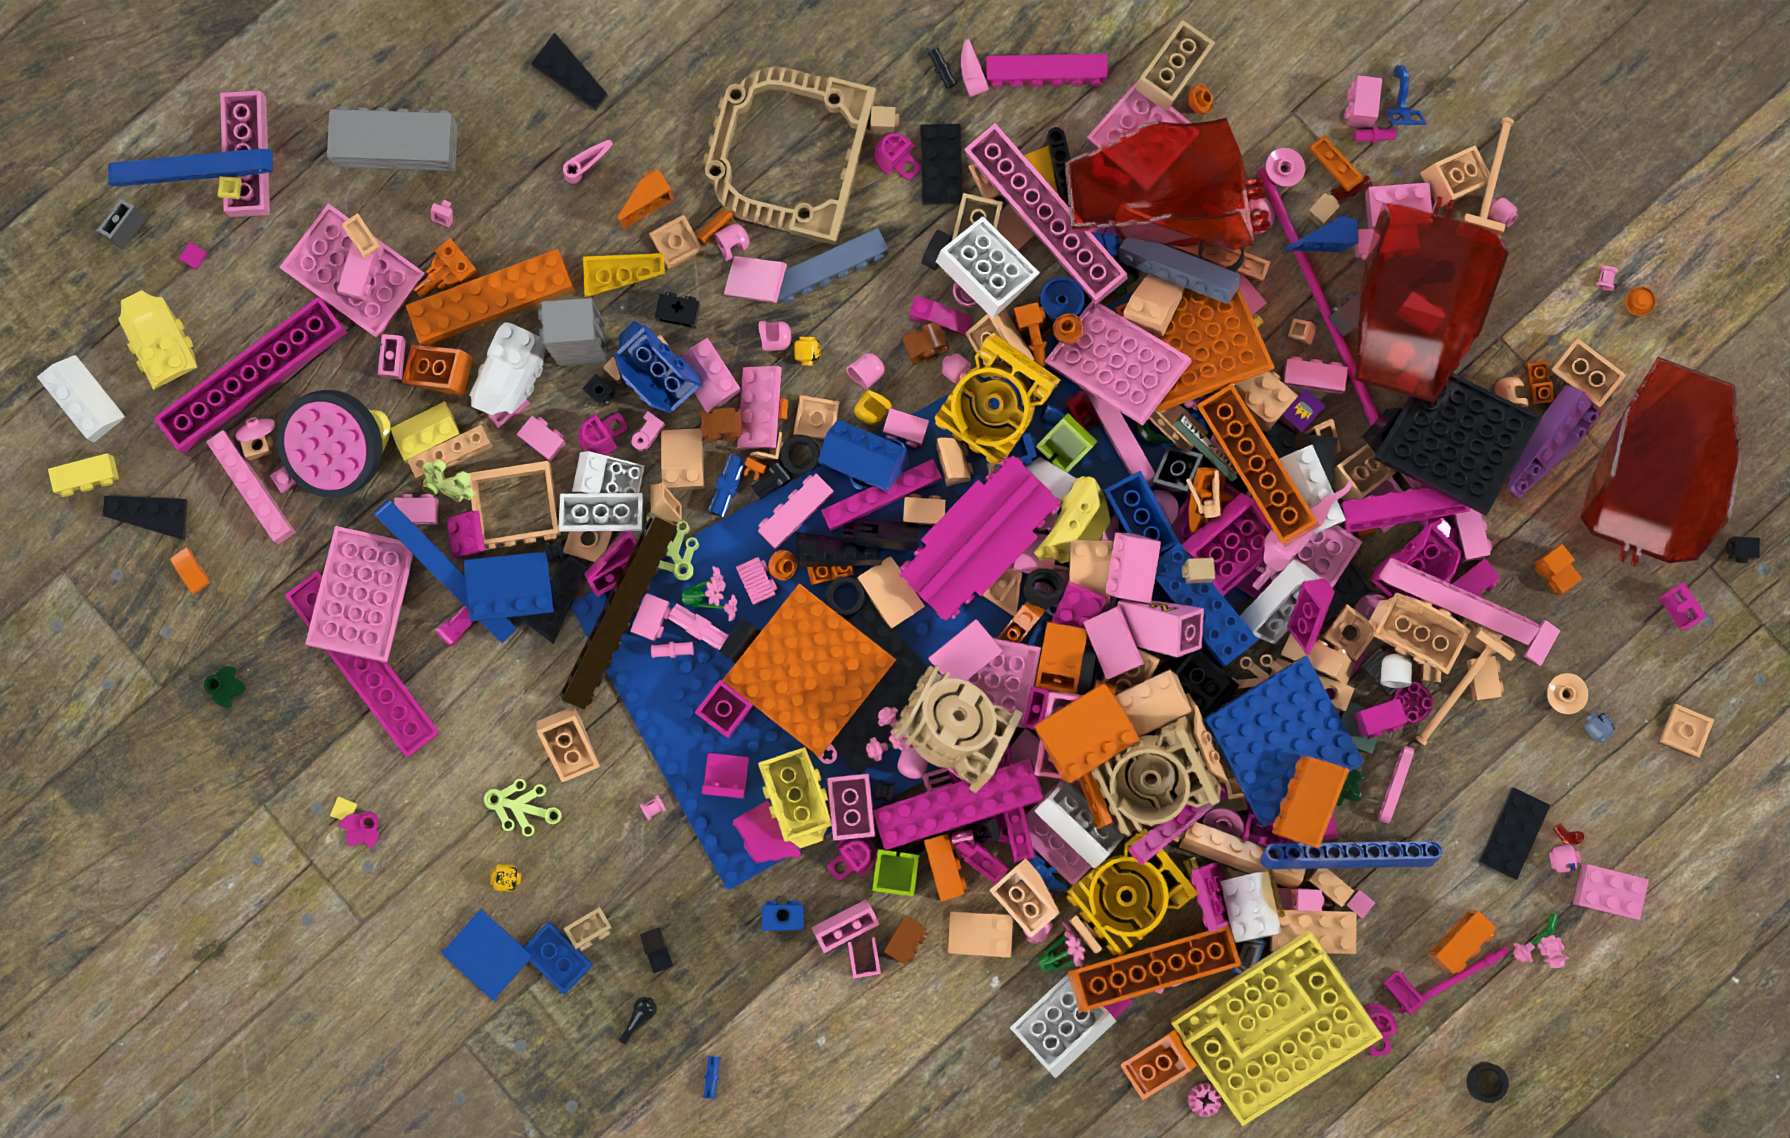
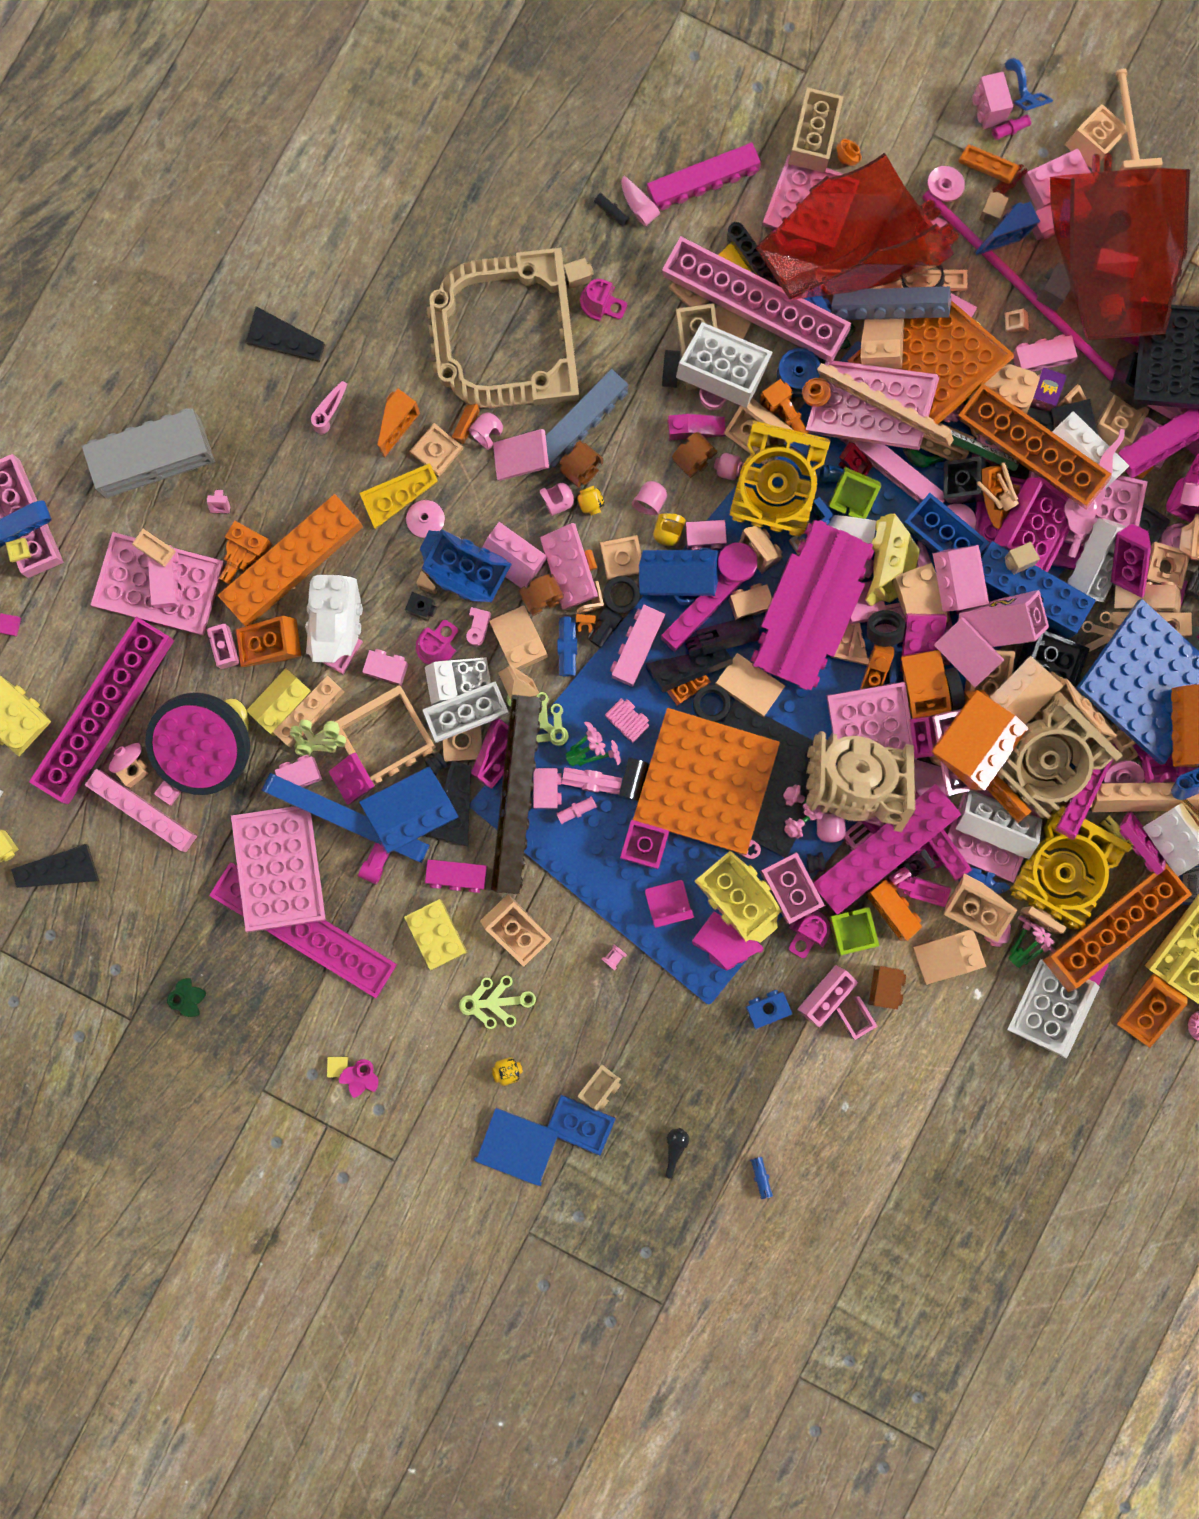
camera: 20 degrees left, 0 degrees up
(190, 571) = (114, 906): orange slope -> none
(488, 718) = (435, 934): none -> light yellow brick
(530, 668) = (456, 875): none -> dark pink brick
(573, 331) = (379, 558): light grey brick -> none
(643, 314) = (421, 527): none -> bright pink dish
(656, 950) = (667, 1083): black slope -> none
(686, 317) = (472, 508): black brick -> none
(782, 565) = (645, 697): orange plate -> none
(810, 311) = (581, 464): none -> dark orange brick
(922, 467) = (737, 562): none -> dark pink tile
(941, 164) = (643, 294): black plate -> none
(966, 652) = (841, 710): bright pink tile -> none
(1132, 372) = (891, 407): none -> light nougat plate
(1503, 212) = (1150, 149): bright pink head -> none

